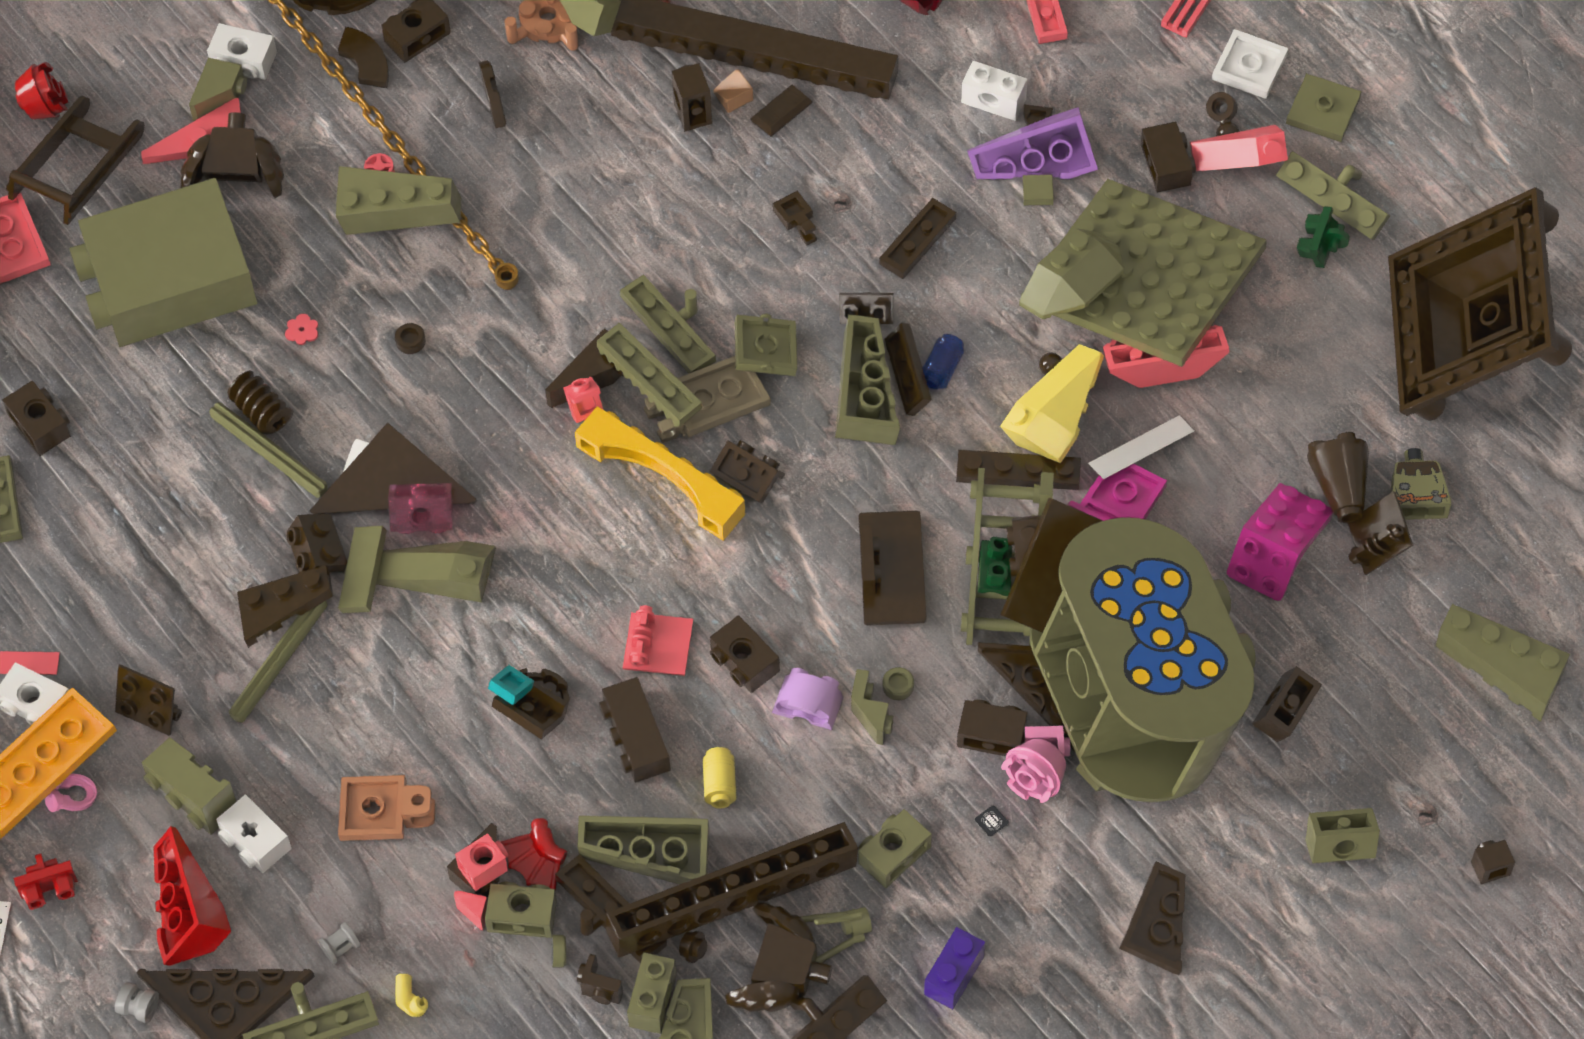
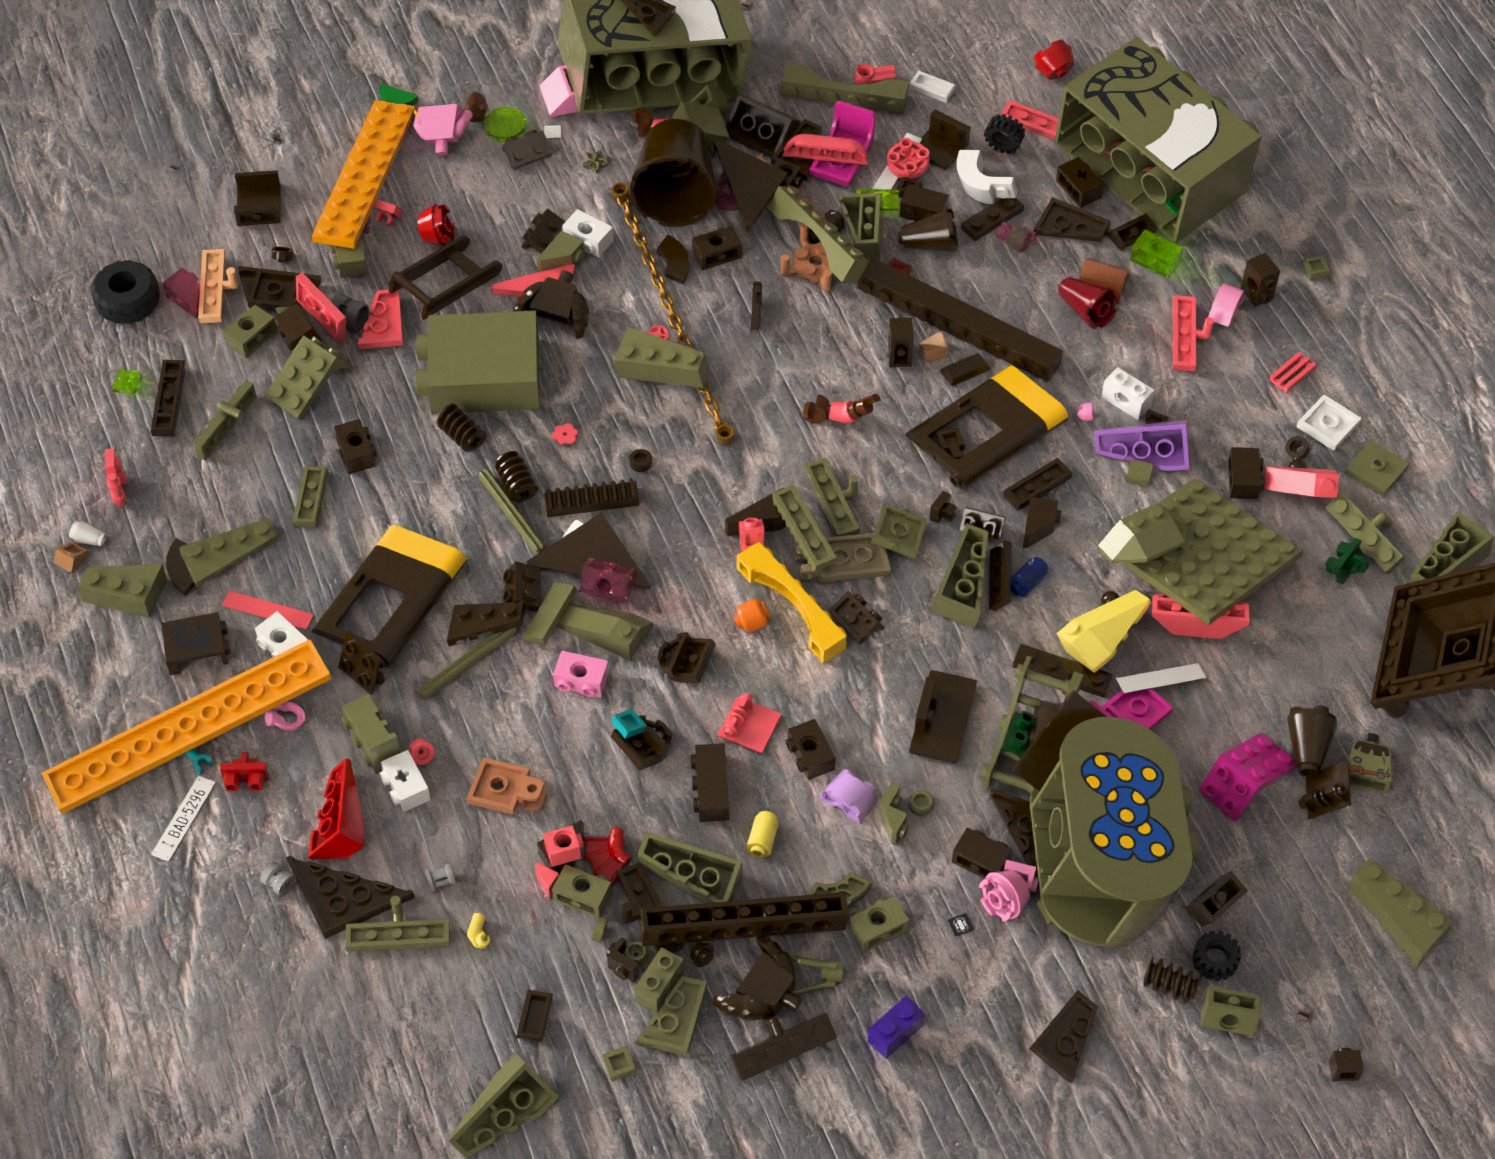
camera: 15 degrees right, 5 degrees down
(155, 555) = (405, 563): none -> dark brown piece
(165, 358) = (461, 428): none -> dark brown piece
(183, 63) = (544, 231): none -> dark brown bracket
(261, 791) = (421, 751): none -> coral tile
(364, 405) = (591, 498): none -> dark brown gear
(413, 628) = (572, 665): none -> bright pink brick
(552, 580) = (685, 658): none -> dark brown slope
(609, 961) = (636, 947): none -> olive plate
(617, 504) = (752, 615): none -> orange head
(640, 208) = (839, 411): none -> reddish brown piece
(811, 301) = (942, 508): none -> dark brown tile
(846, 809) = (853, 886): none -> olive tile
(854, 141) = (1008, 400): none -> dark brown piece
(935, 284) = (1040, 520): none -> dark brown slope
(948, 127) = (1086, 412): none -> bright pink hinge
(1263, 818) = (1171, 980): none -> dark brown piece
(1302, 789) = (1220, 942): none -> black tyre
(1448, 193) = (1458, 548): none -> olive wedge

